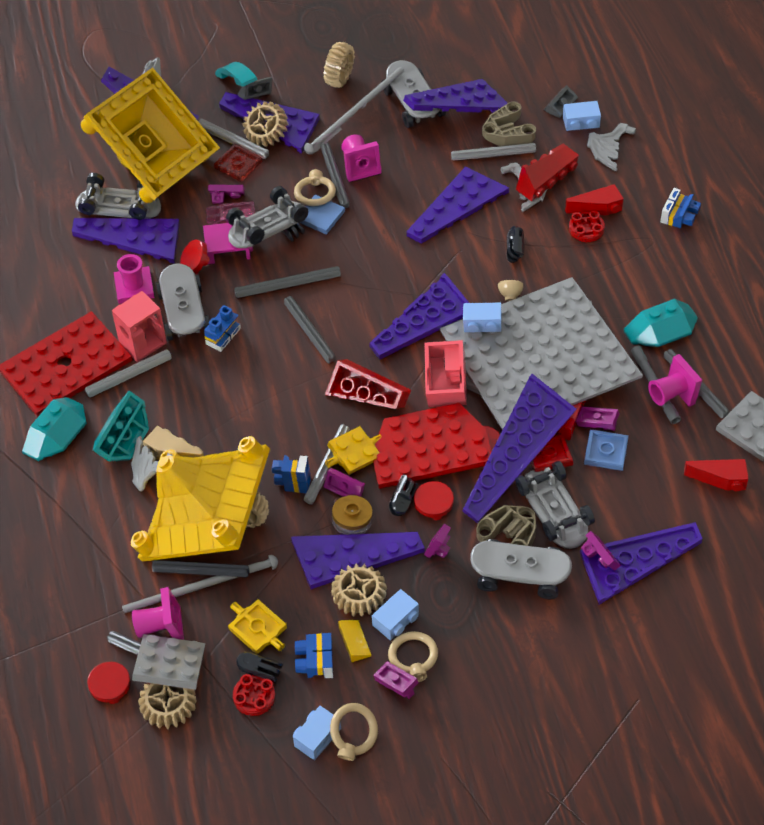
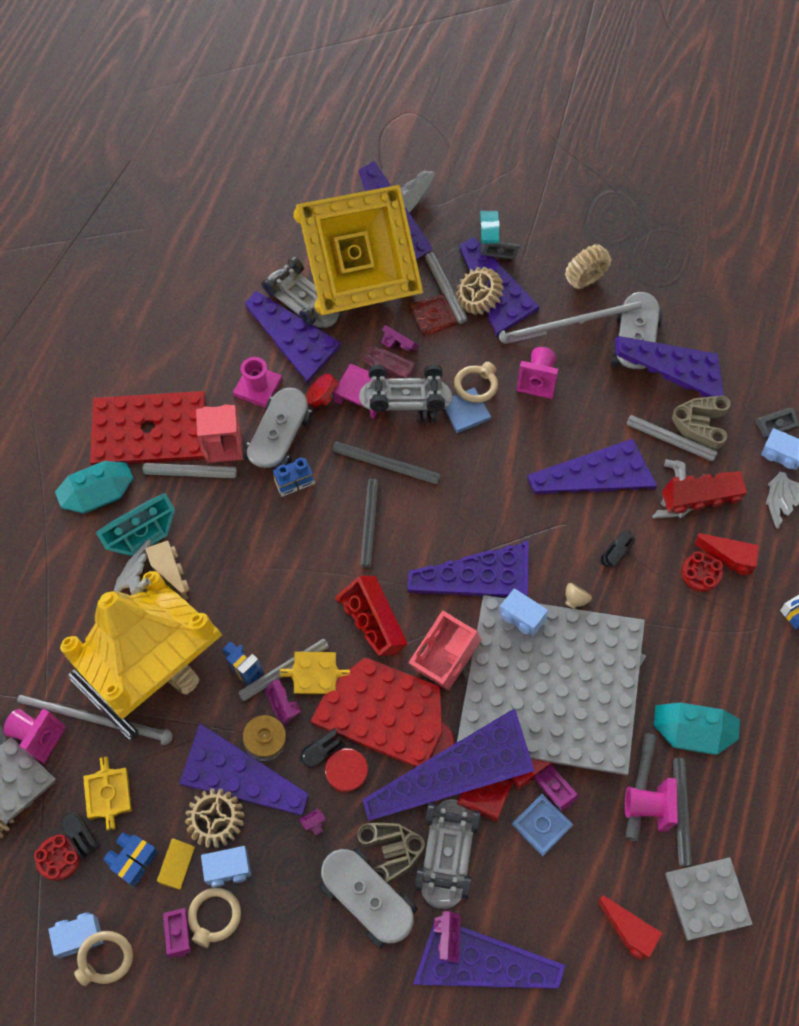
camera: 35 degrees right, 10 degrees up
(335, 175) = (507, 378): dark grey axle -> none

